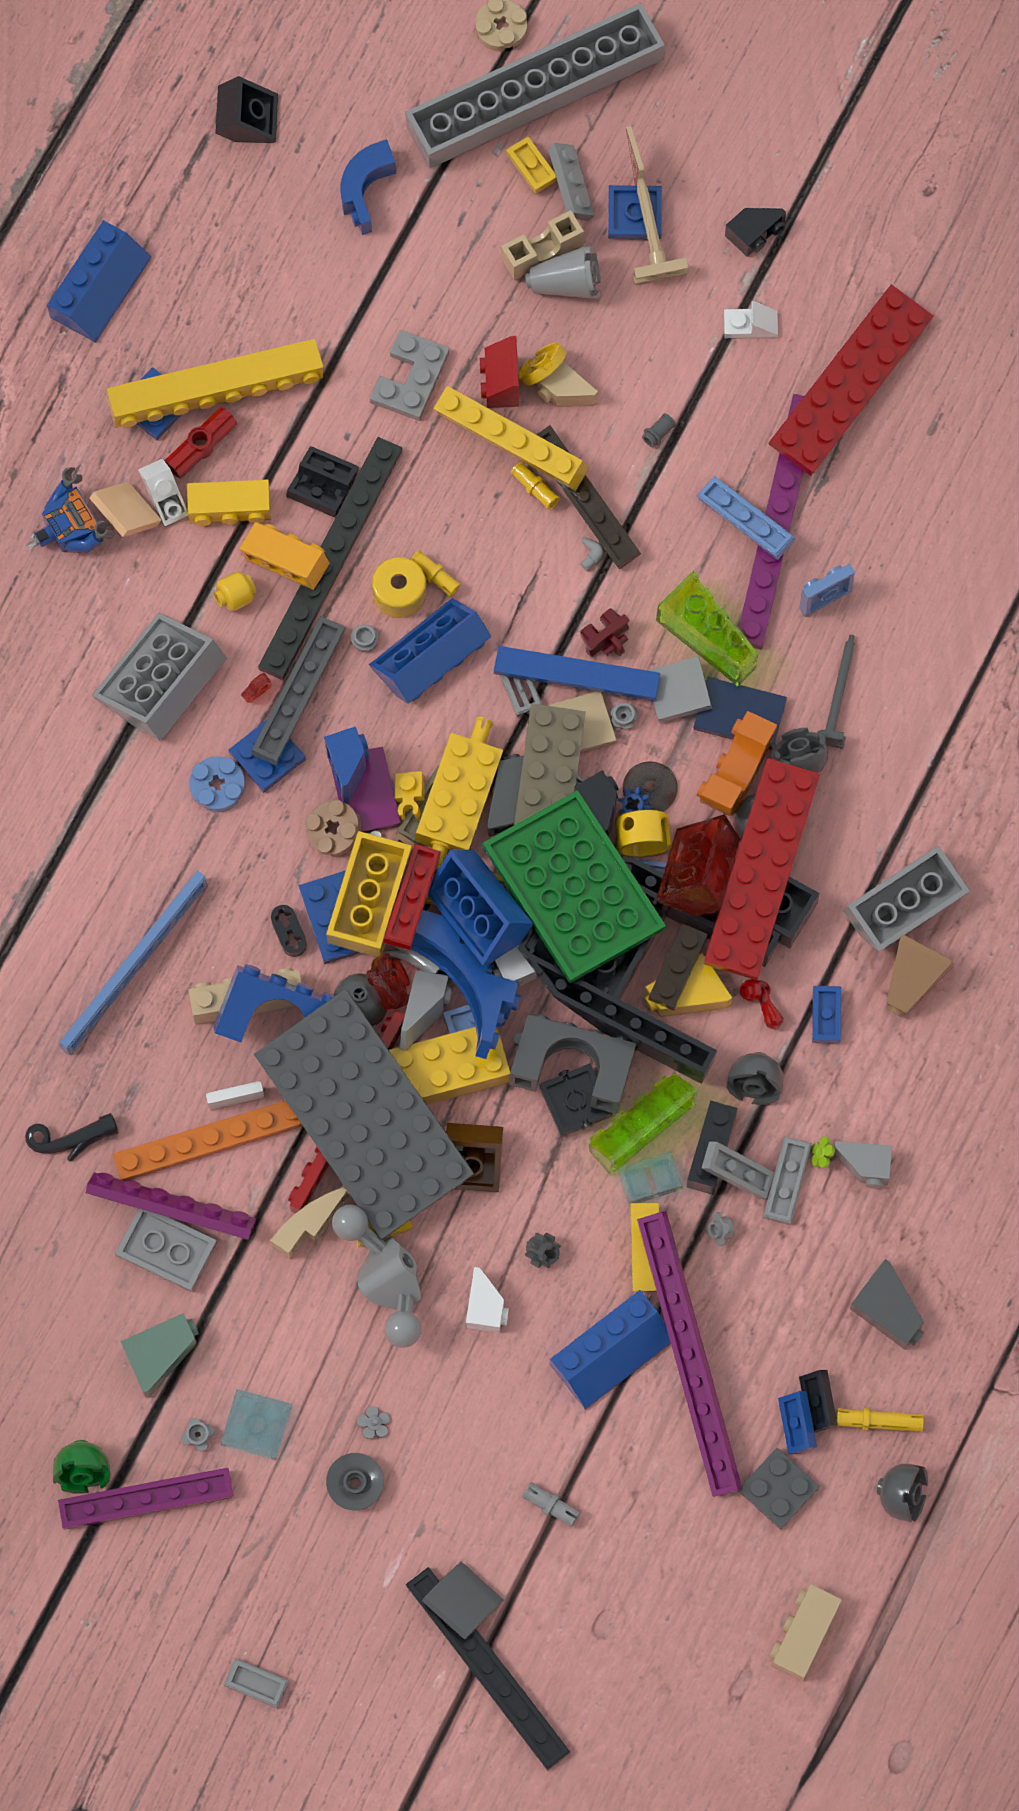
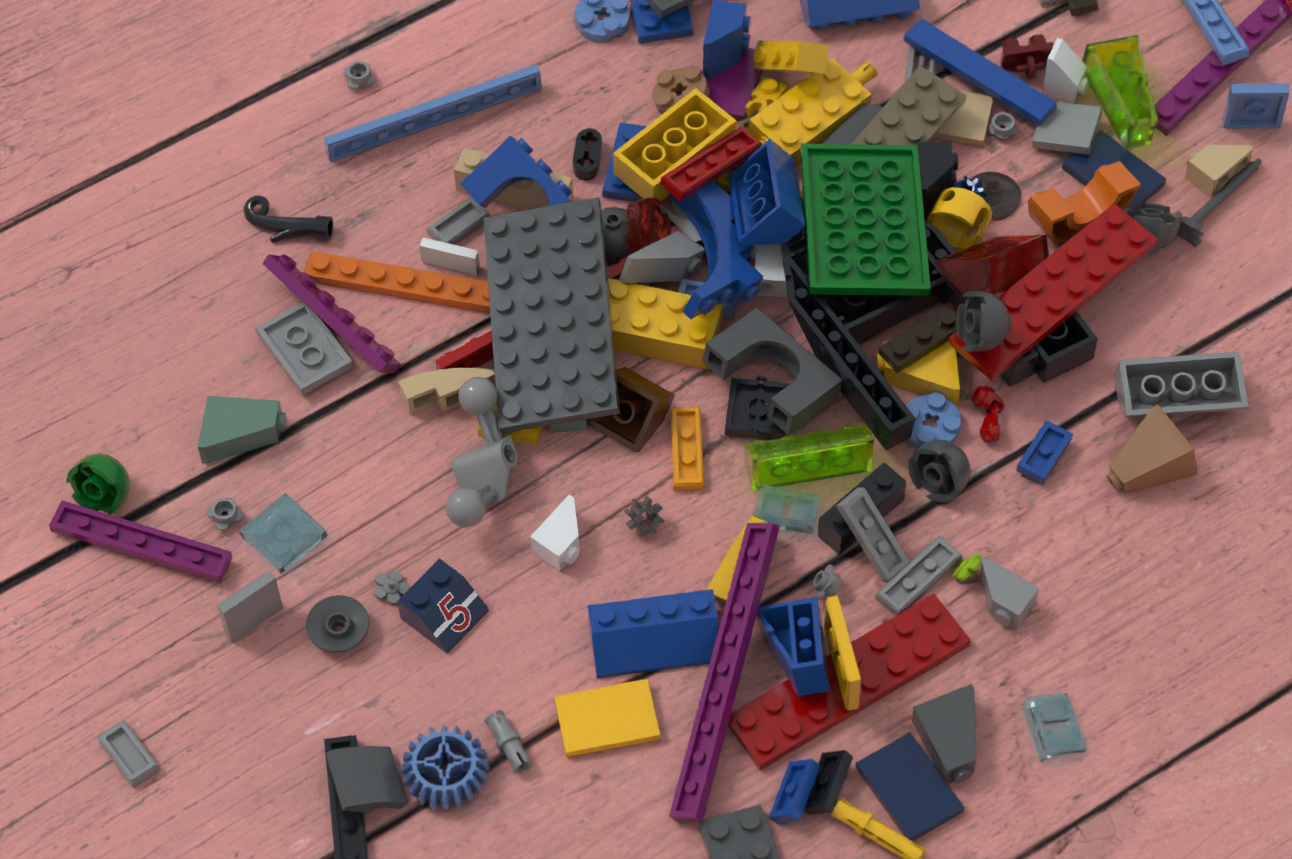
camera: 30 degrees right, 15 degrees down
(42, 950) = (358, 69): none -> light grey plate
(218, 1061) = (458, 222): none -> light grey tile
(279, 1508) = (250, 606): none -> light grey tile
(417, 752) = (791, 57): none -> yellow brick
(429, 1419) = (442, 606): none -> dark blue slope
(528, 1547) = (420, 765): none -> medium blue gear
(537, 1166) = (687, 449): none -> light orange tile
(615, 1440) = (607, 718): none -> yellow tile
(651, 639) = (1064, 73): none -> white slope
(727, 1020) = (938, 408): none -> medium blue plate
(731, 942) = (982, 321): none -> dark grey cylinder
(733, 1299) = (798, 643): none -> blue wedge
(775, 1292) = (842, 653): none -> yellow tile
(783, 1303) = (885, 660): none -> red plate
(821, 664) = (1216, 166): none -> tan slope
(880, 1368) = (909, 787): none -> dark blue tile
(971, 1264) = (1053, 739): none -> clear light blue piece

